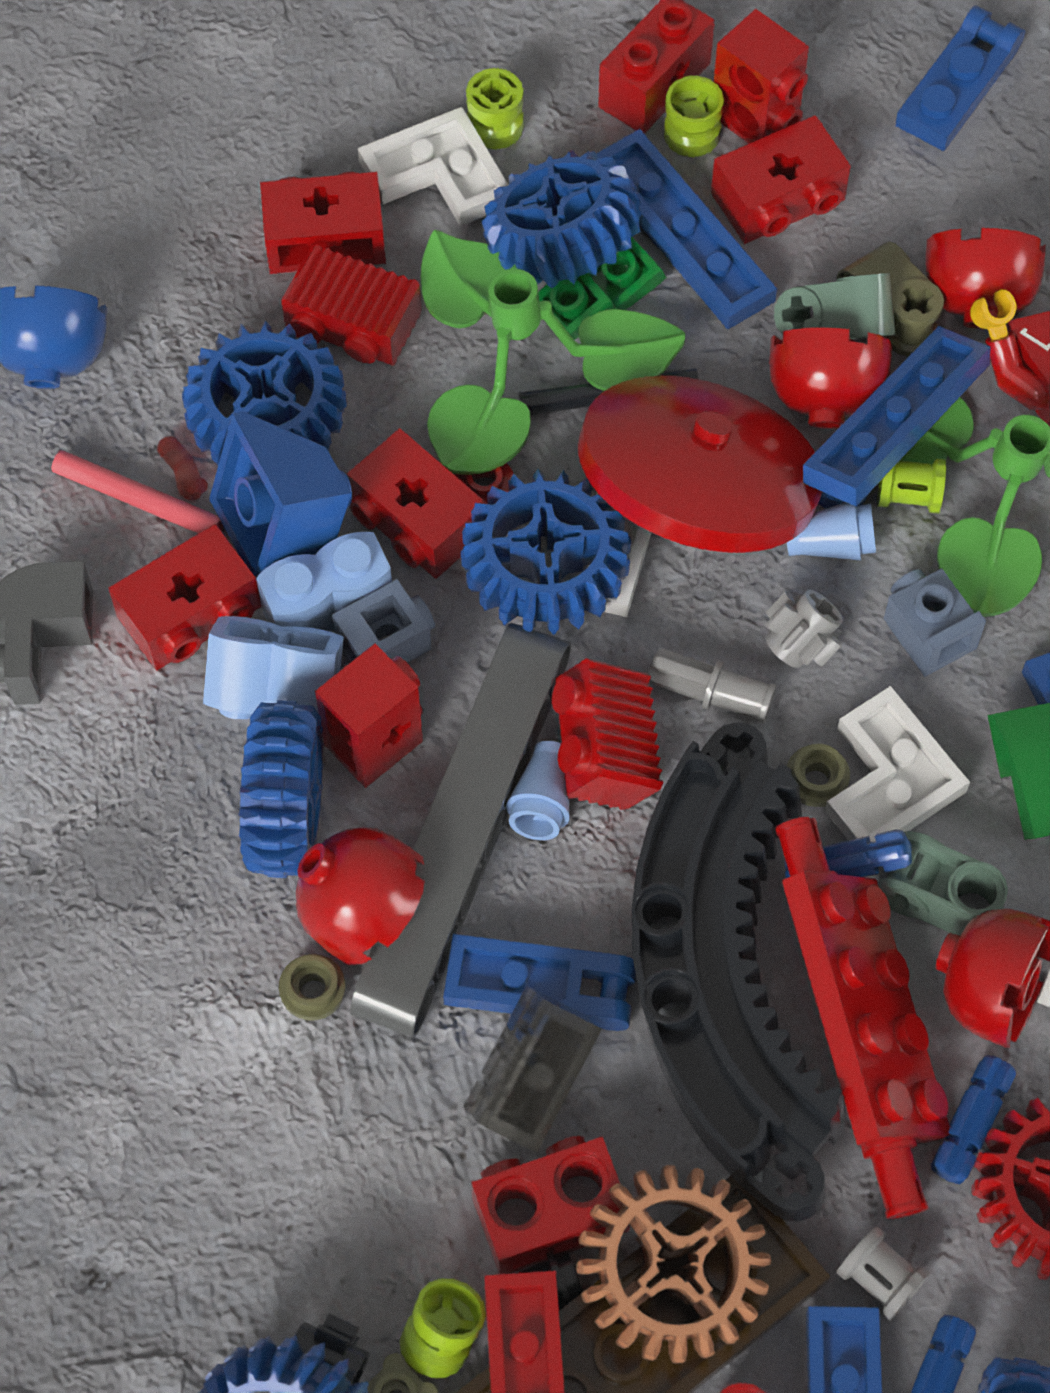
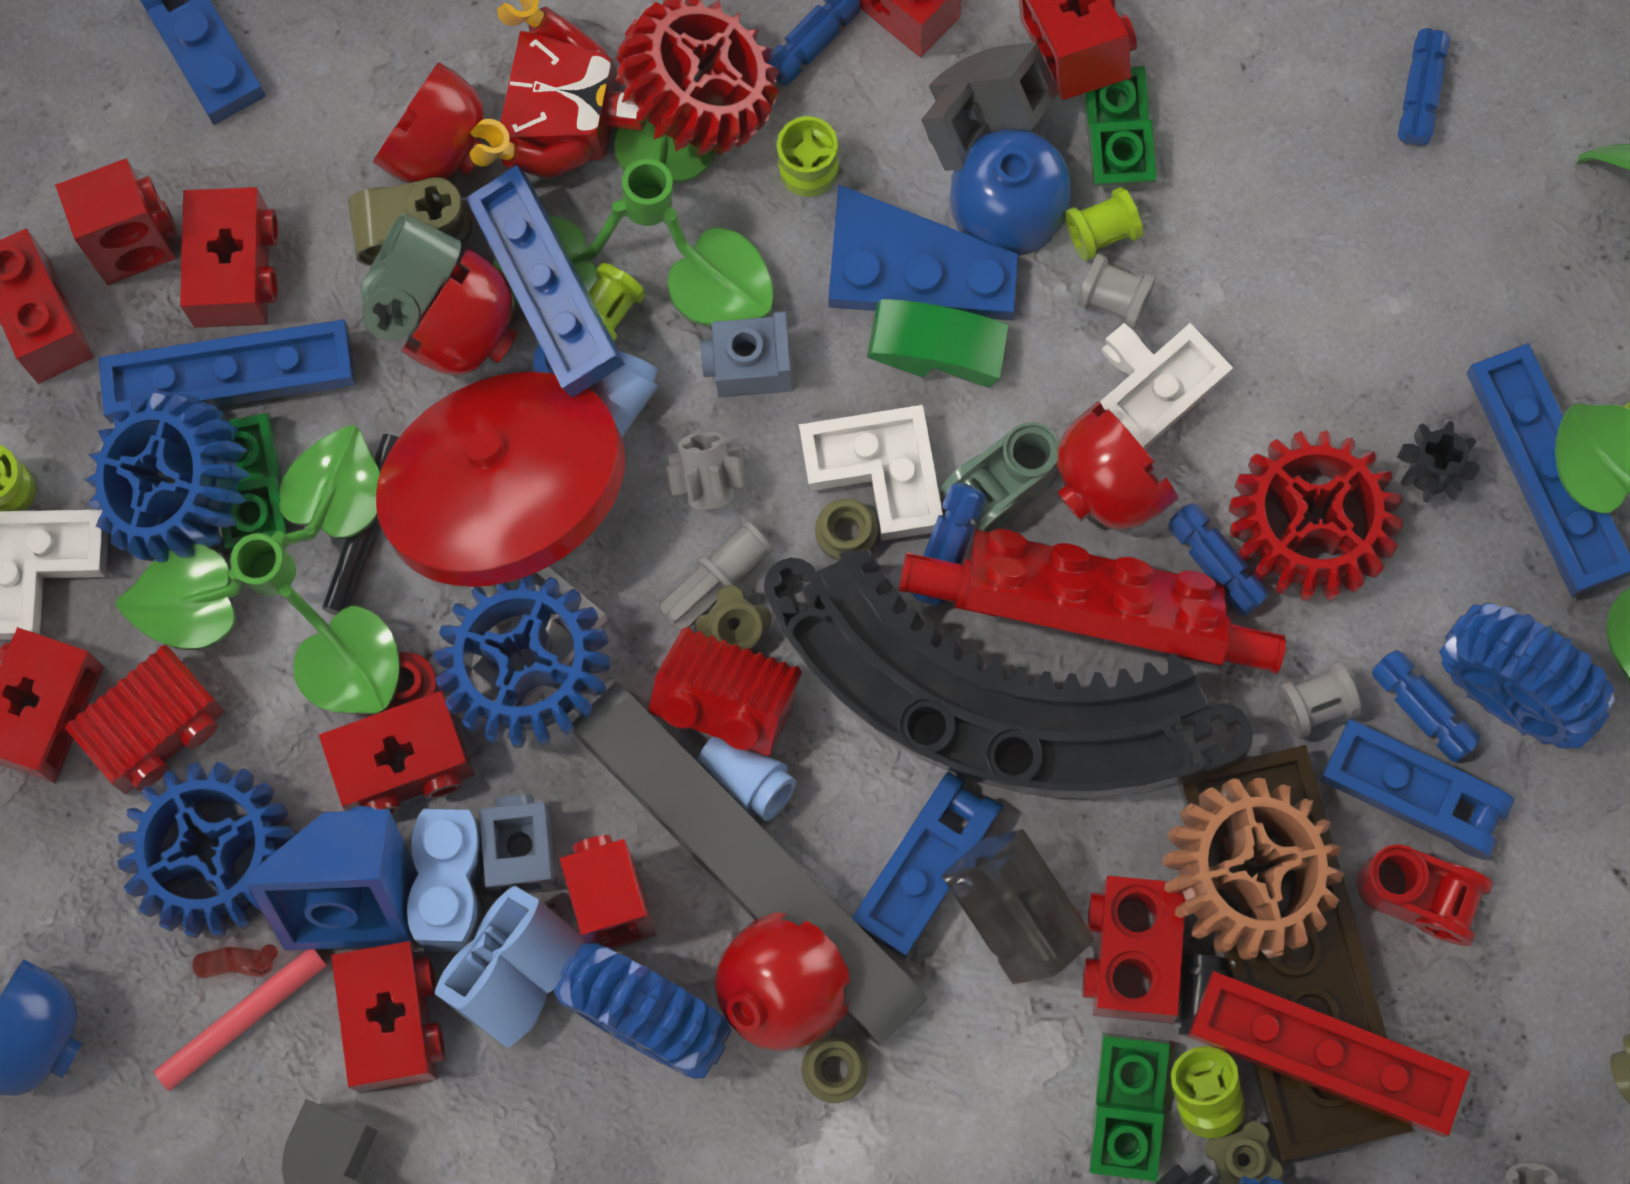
camera: 60 degrees left, 10 degrees up
(392, 1269) = (1129, 1107): none -> green slope
(691, 705) = (732, 604): none -> olive plate
(693, 116) = (100, 290): lime wheel -> none

